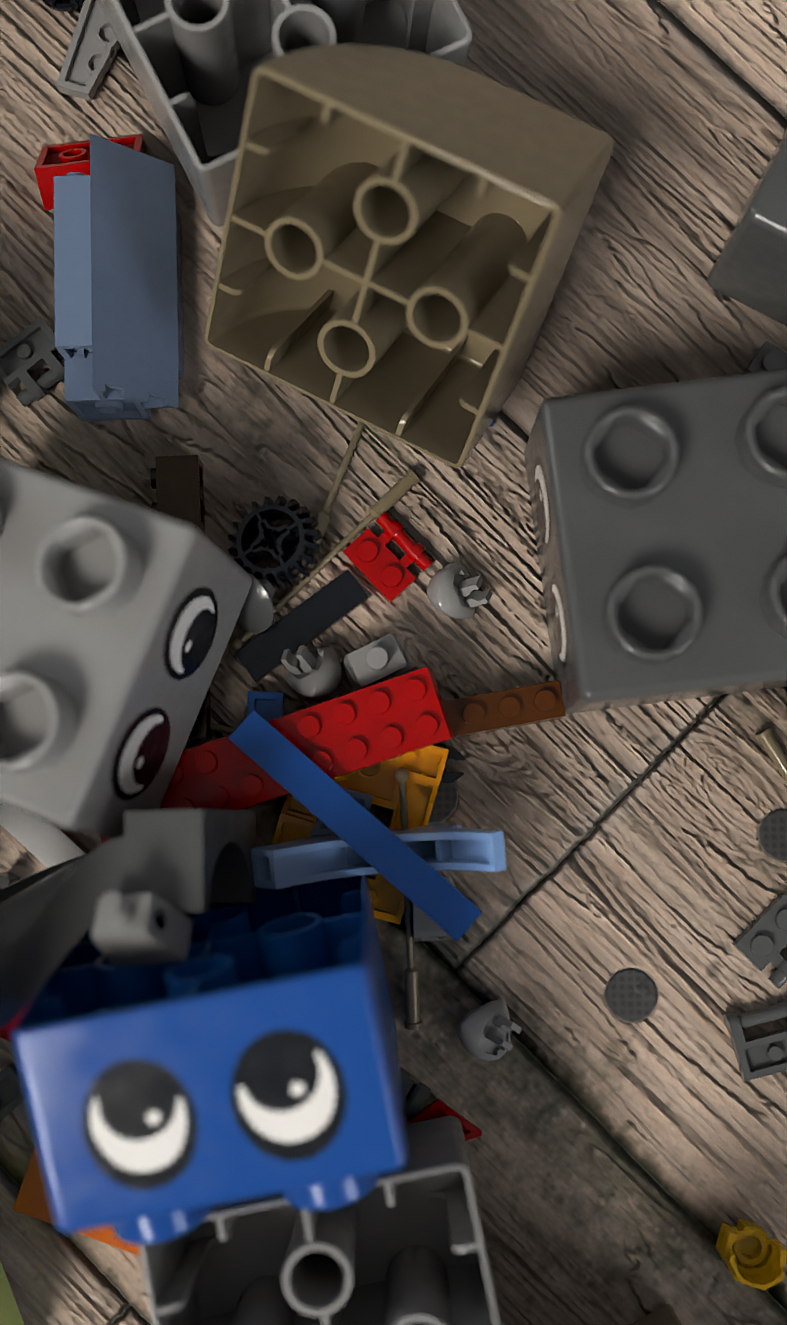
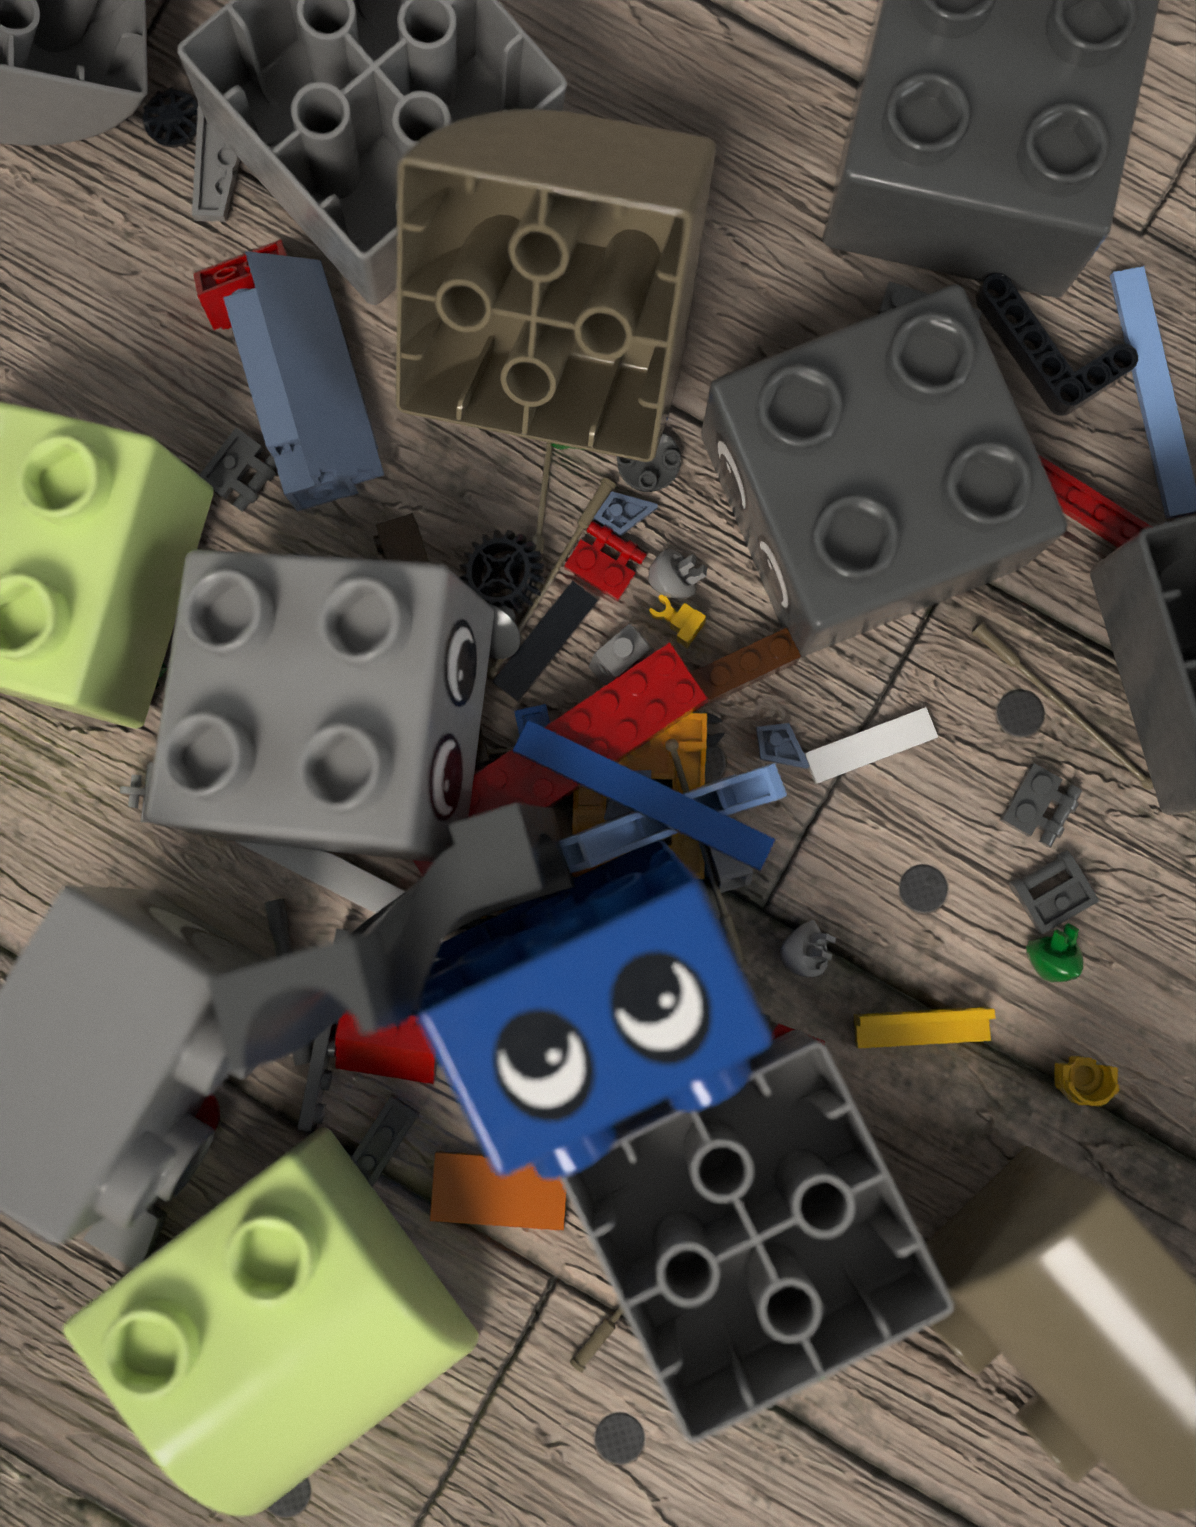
camera: 15 degrees left, 0 degrees up
(140, 930) = (492, 917): light grey torso -> none
(313, 672) = (567, 678): light grey piece -> none
(420, 511) = (623, 512): none -> sand blue piece
(453, 643) = (685, 622): none -> yellow piece
(471, 477) = (654, 474): none -> dark grey dish
(519, 802) = (779, 745): none -> sand blue piece
(591, 1145) = (923, 1027): none -> yellow fence
(615, 827) = (871, 745): none -> white tile
(755, 1110) = (1057, 956): none -> green piece

